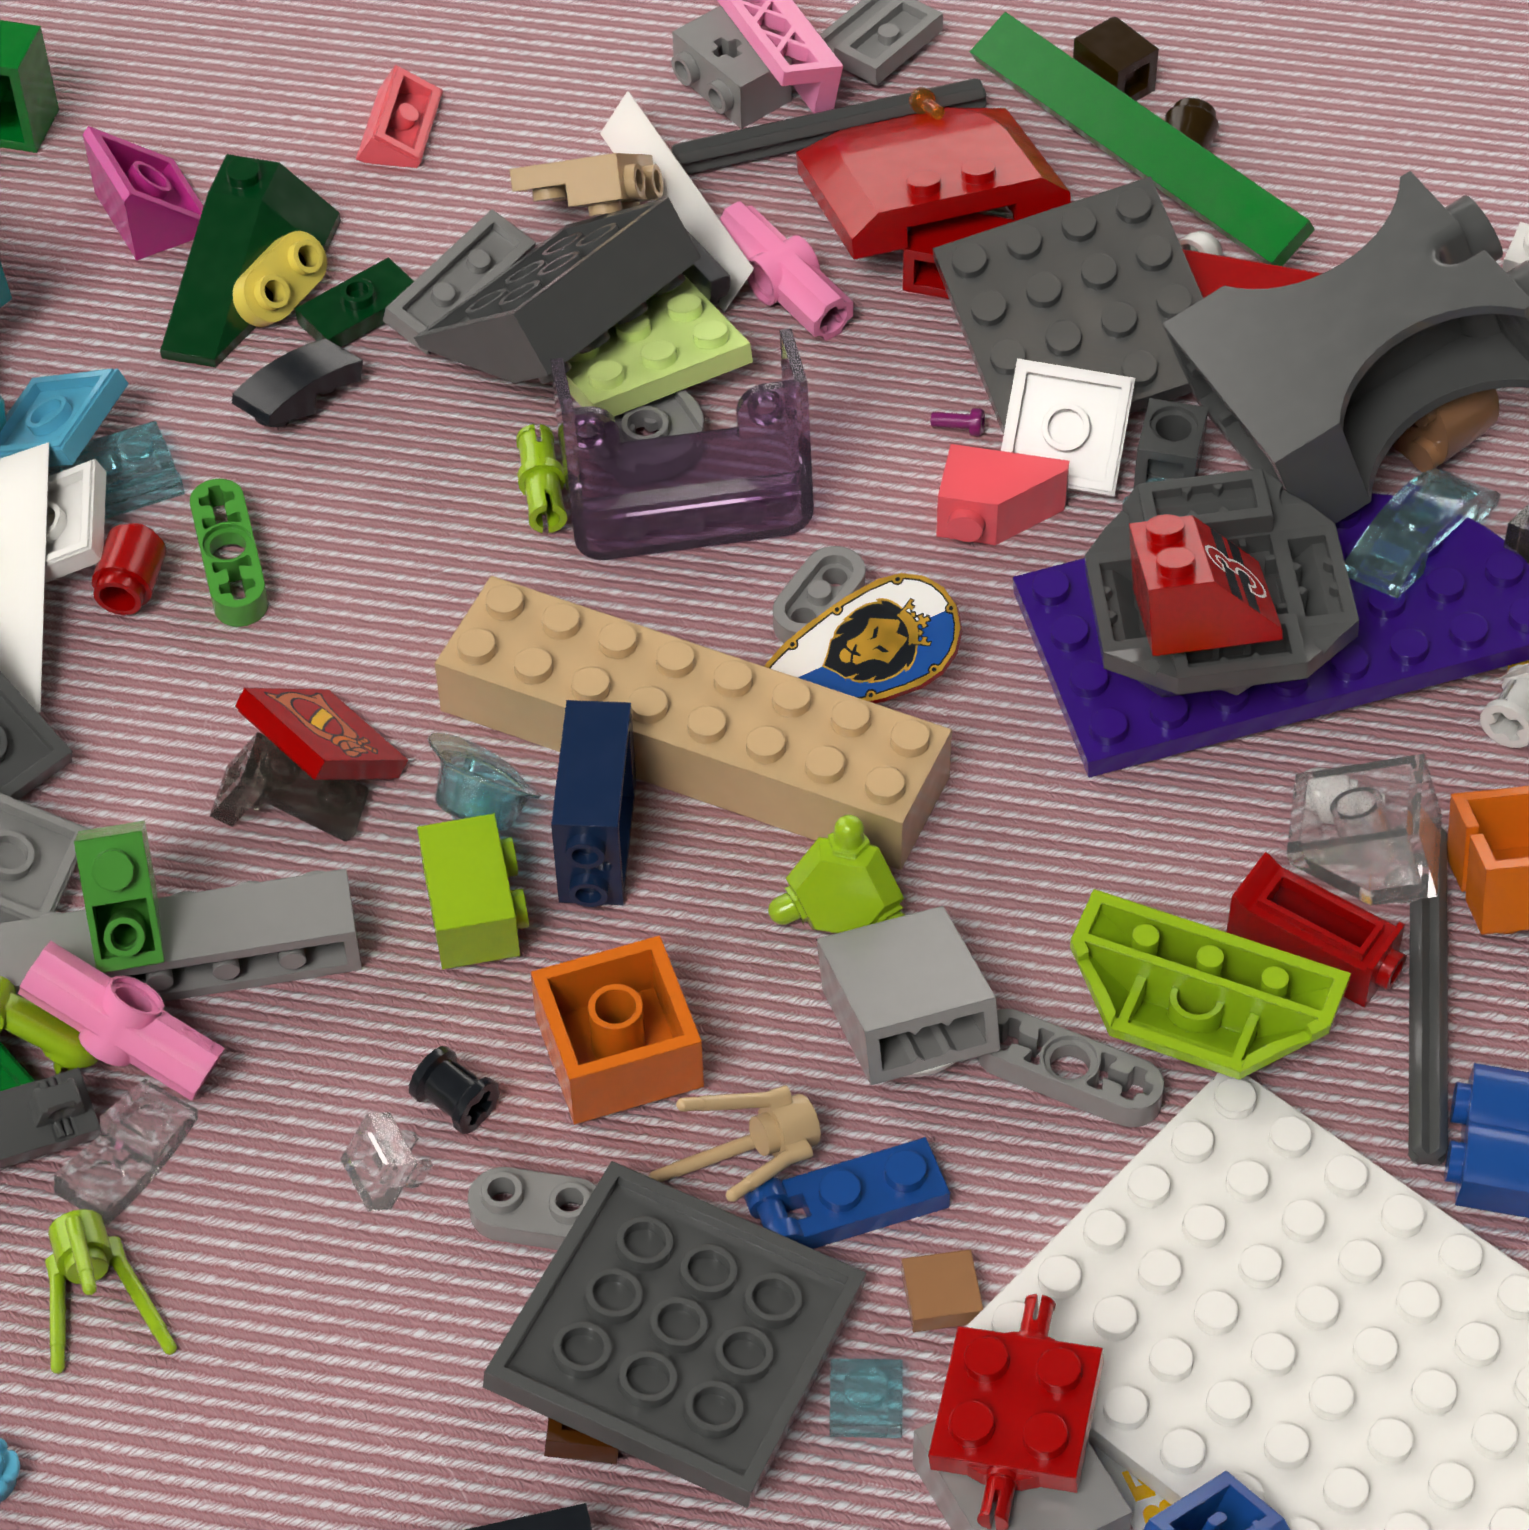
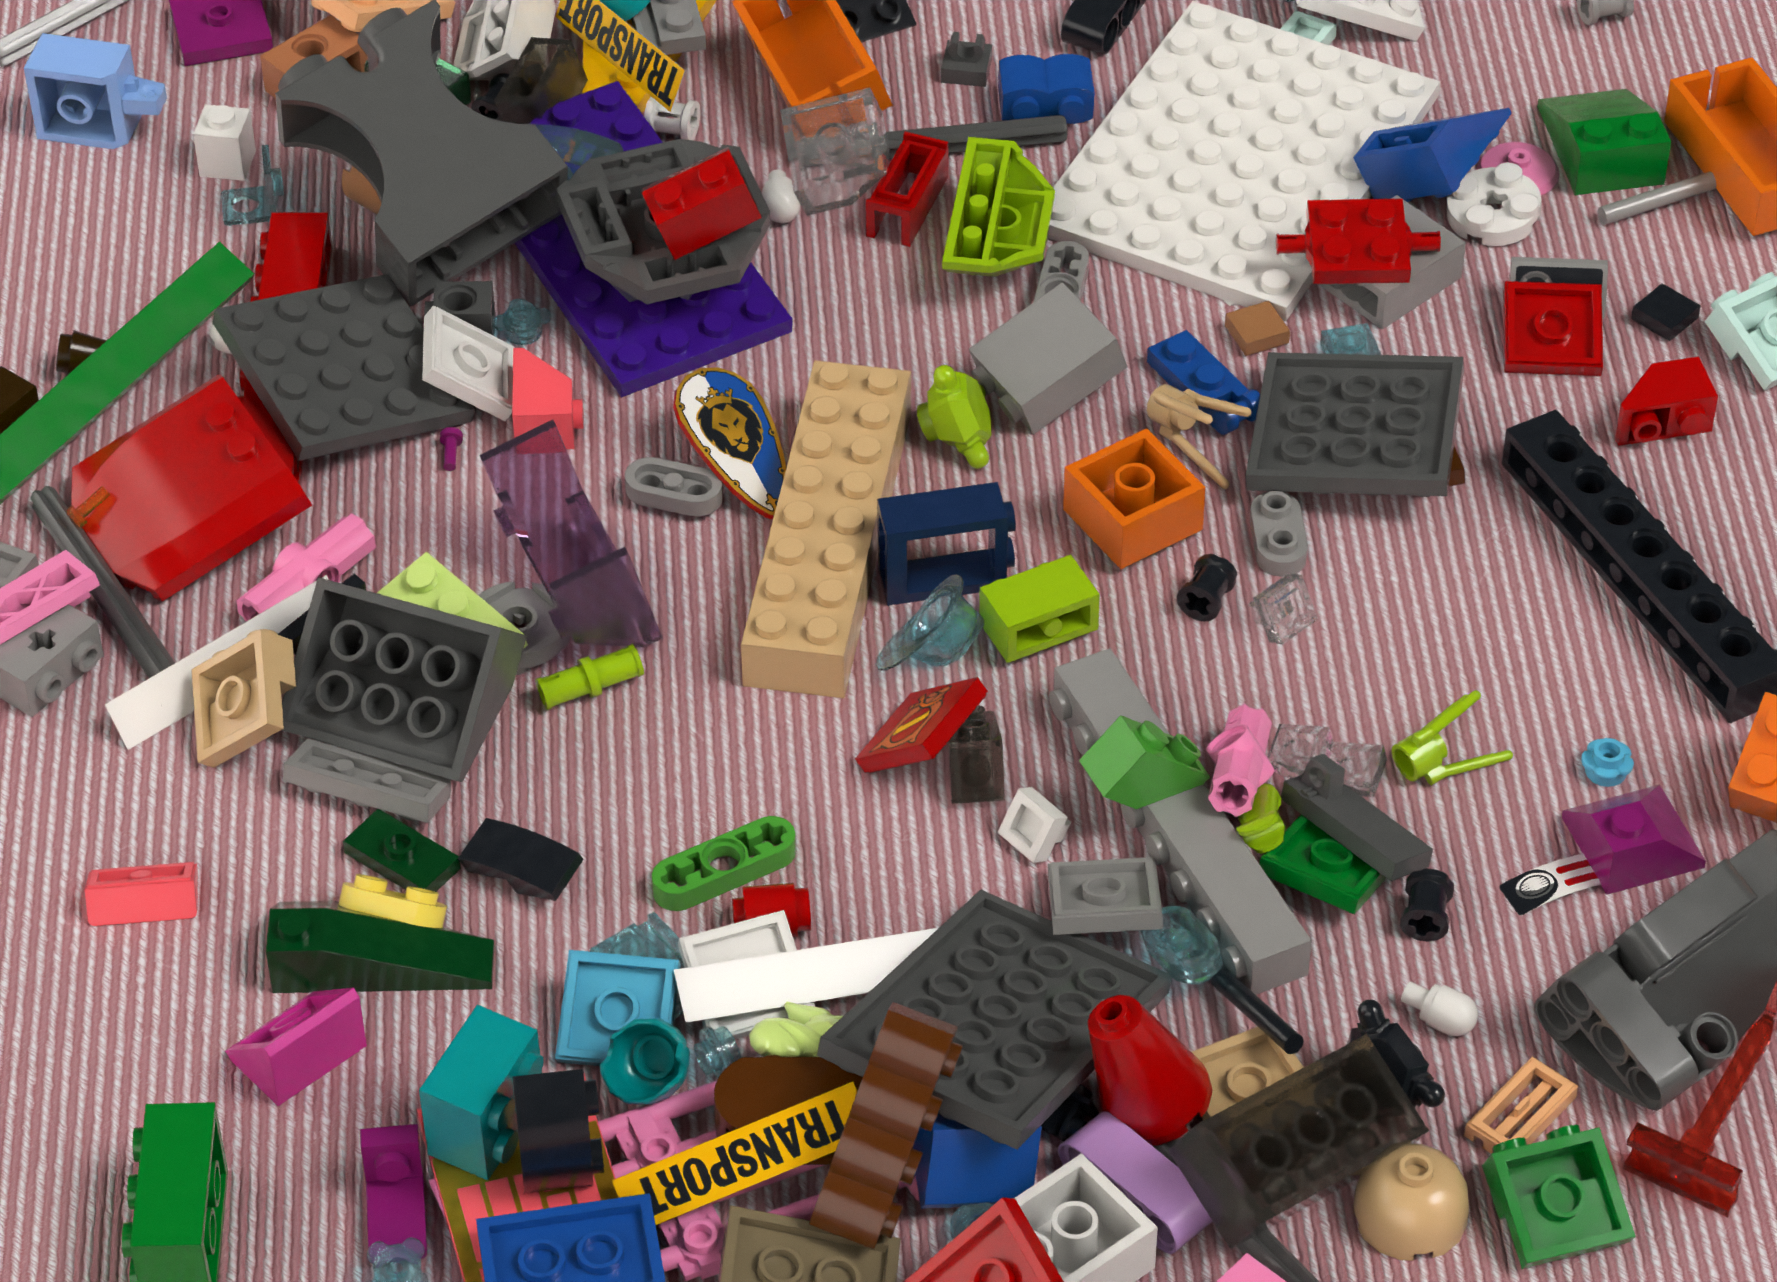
camera: 105 degrees left, 5 degrees down
(157, 812) = (1033, 825): none -> white tile

